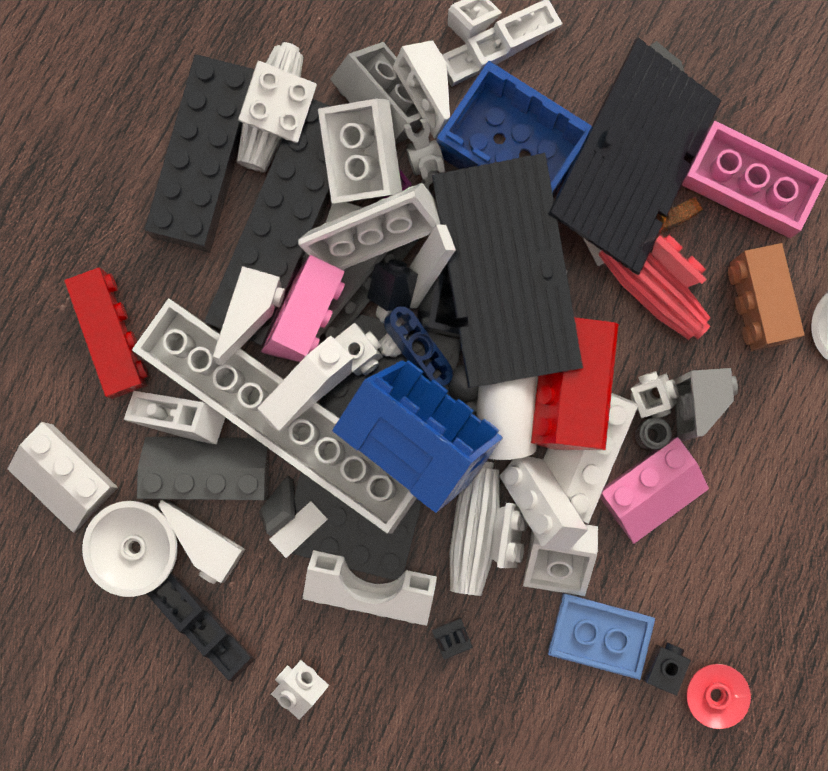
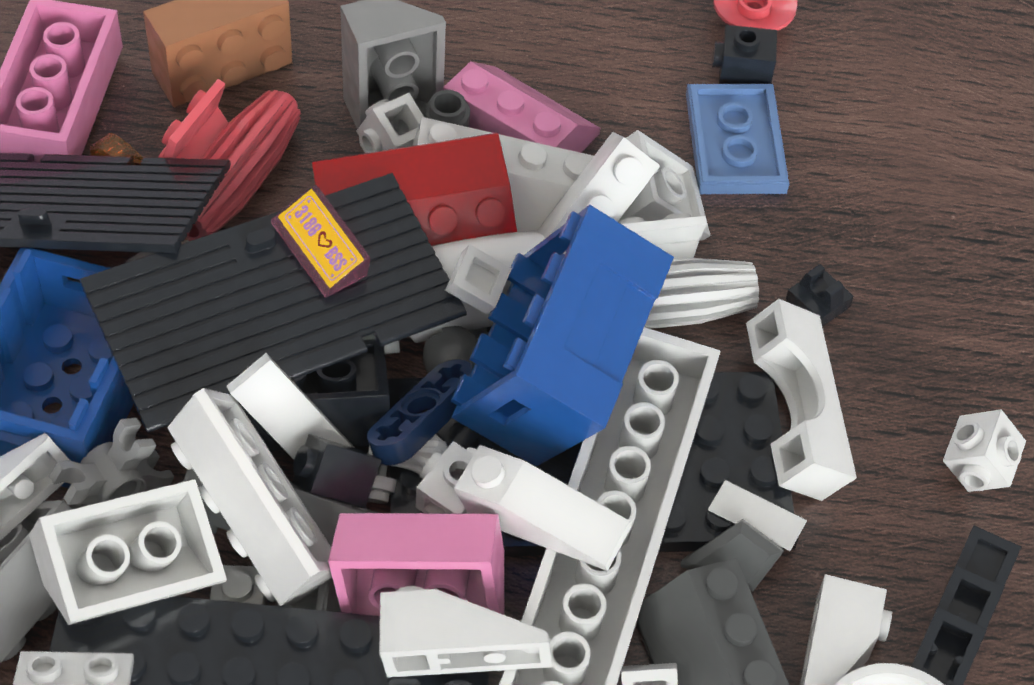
camera: 115 degrees left, 30 degrees down
(484, 399) = (478, 279): none -> white plate
(531, 304) = (322, 242): none -> slope

